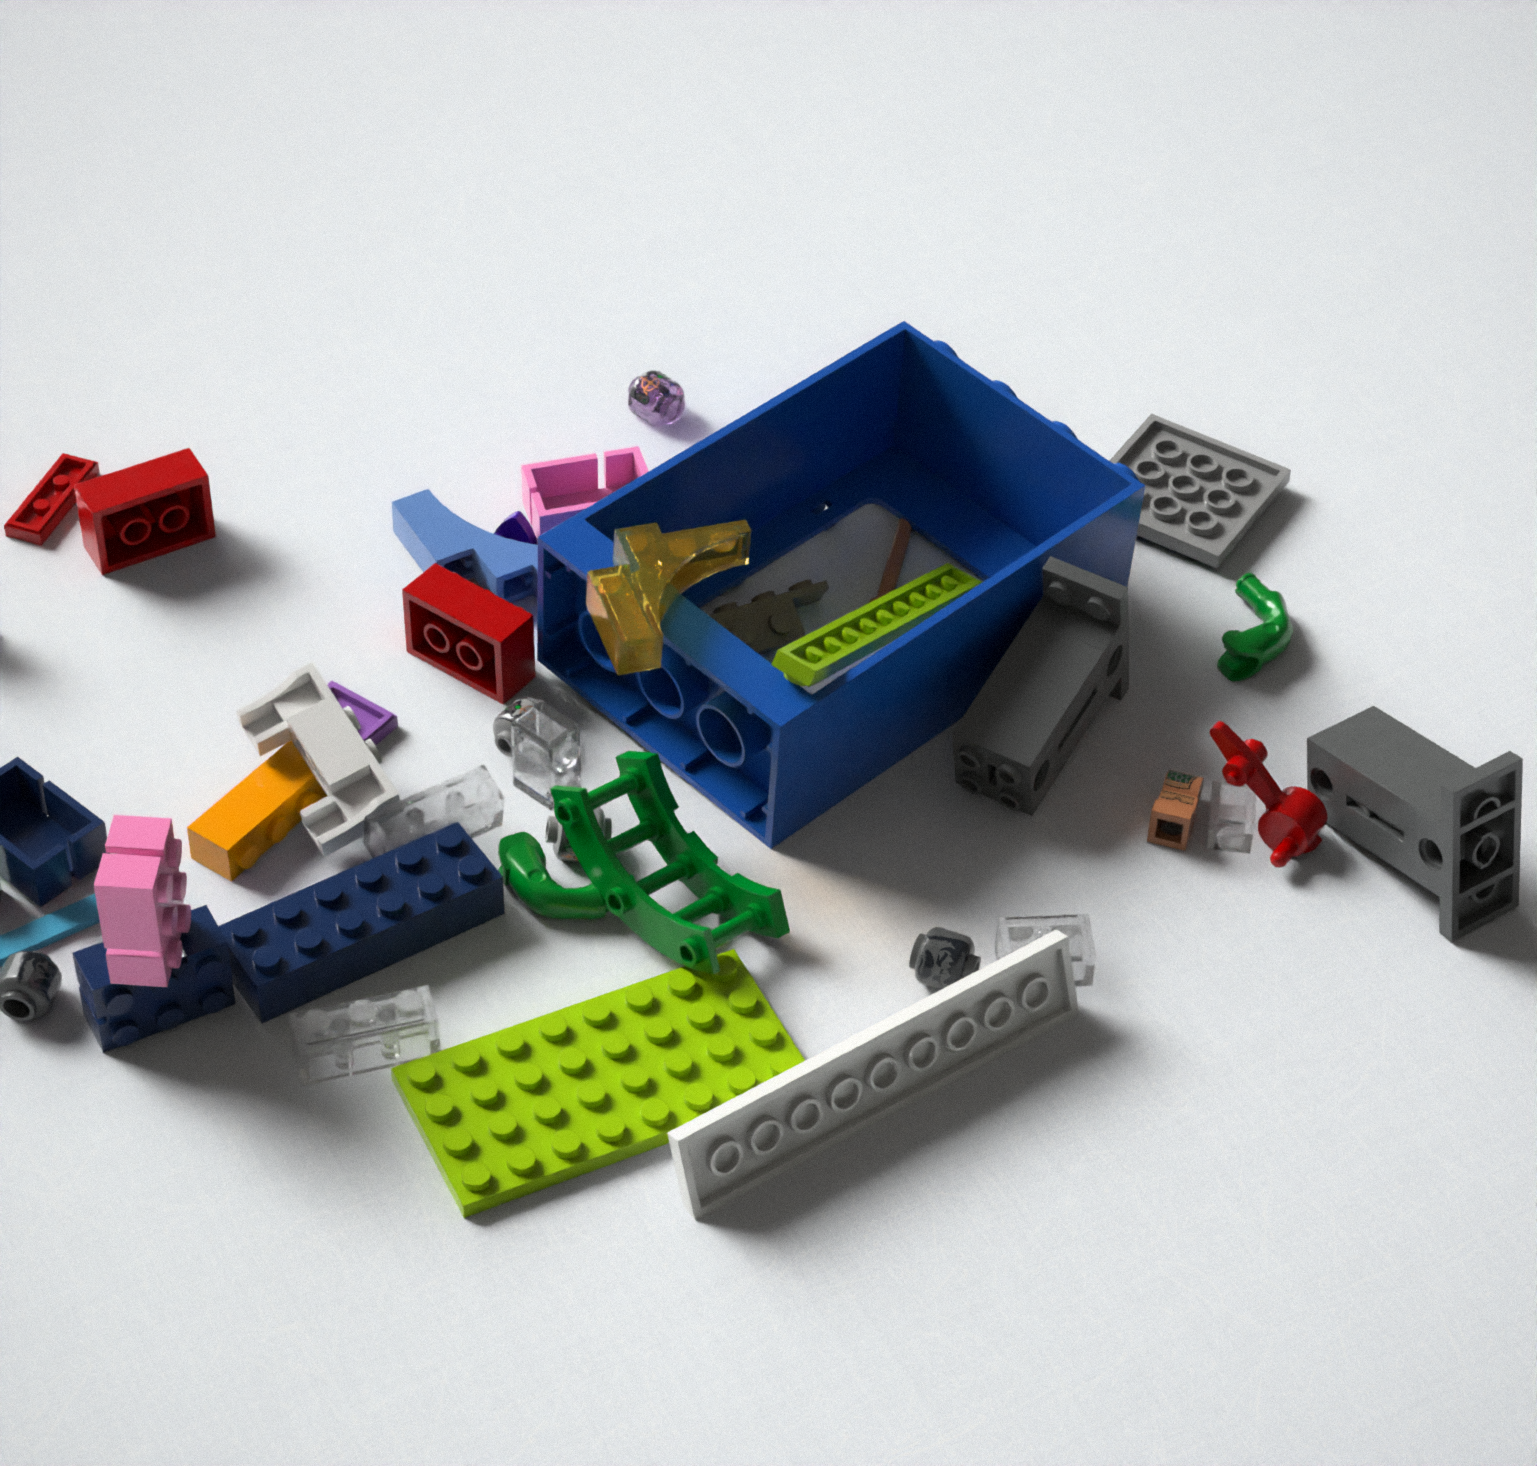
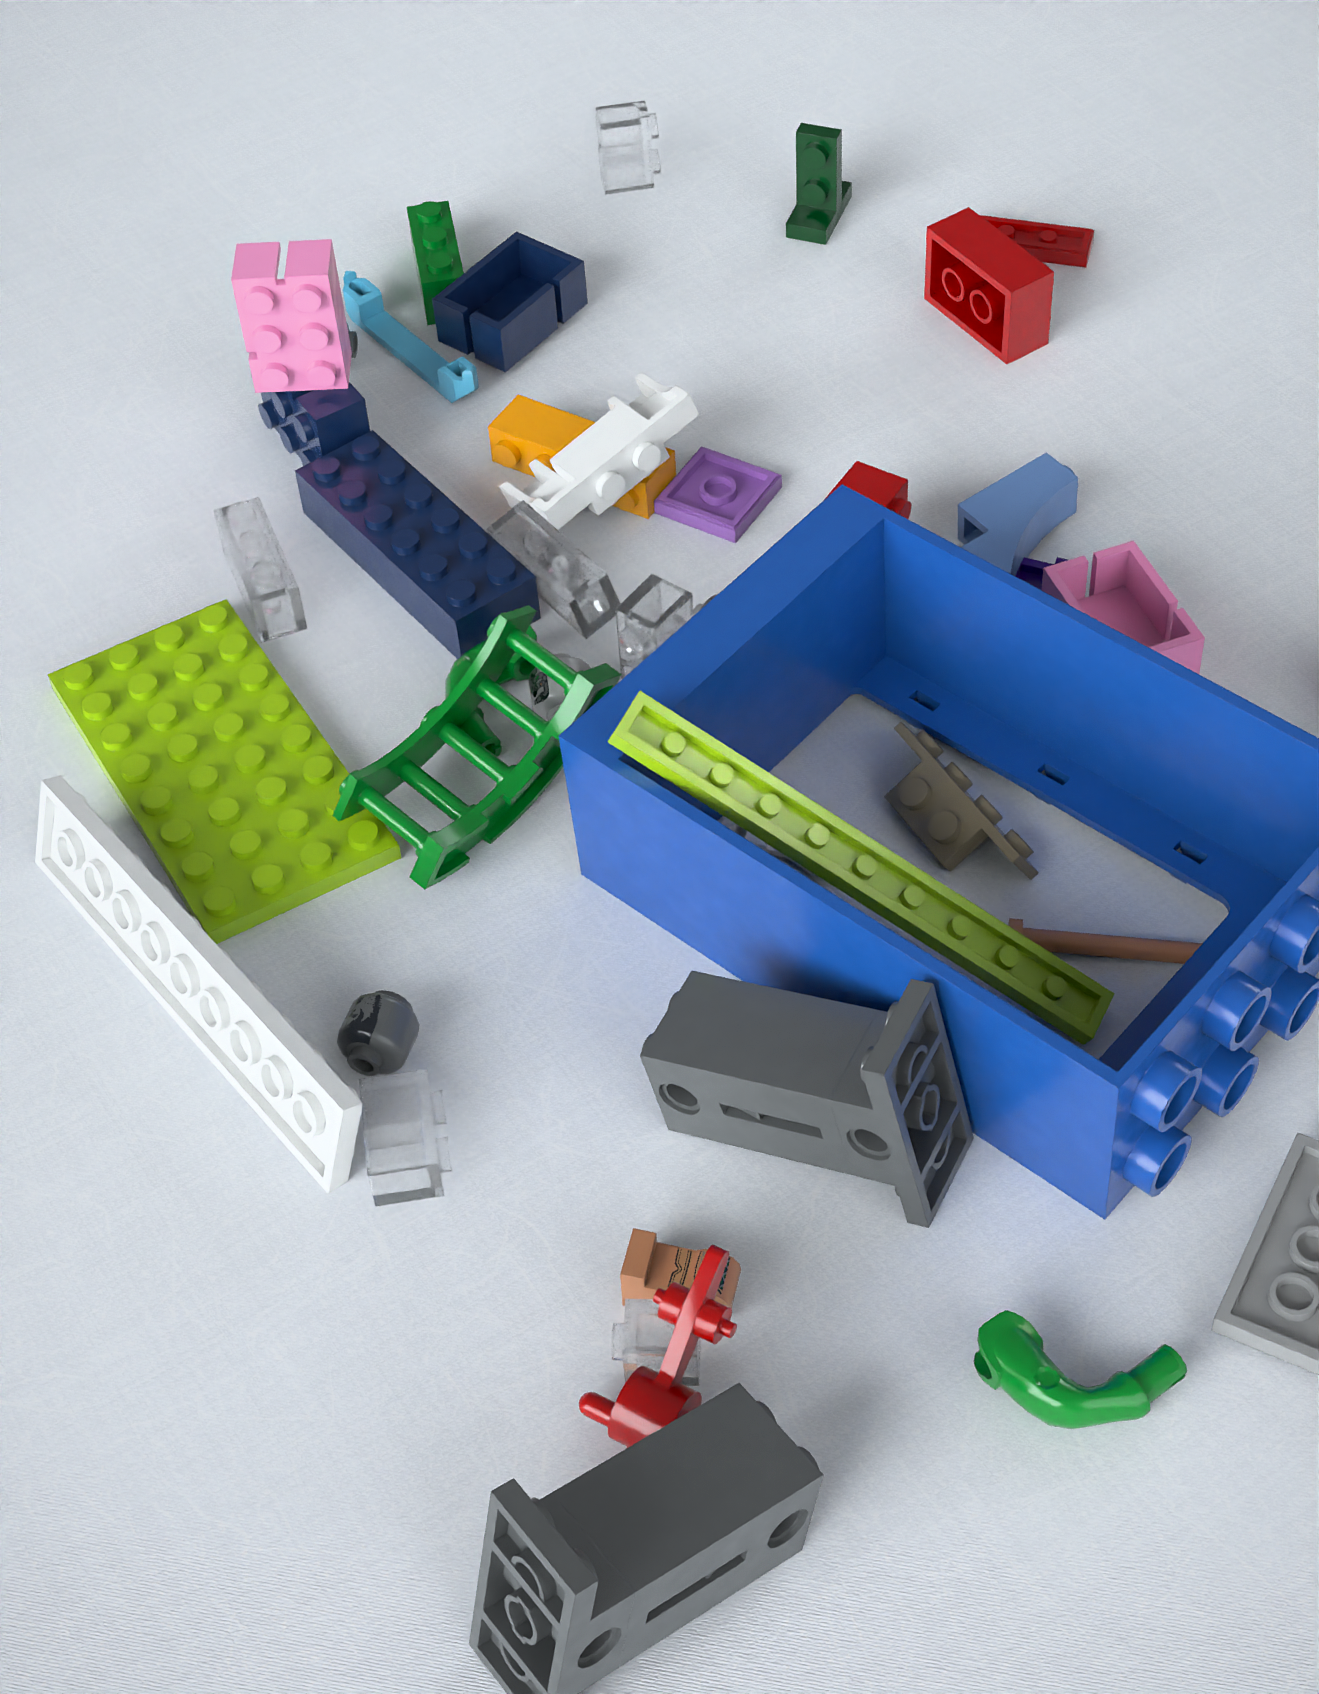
camera: 90 degrees right, 5 degrees up
(647, 578) = (726, 564): clear yellow arch -> none

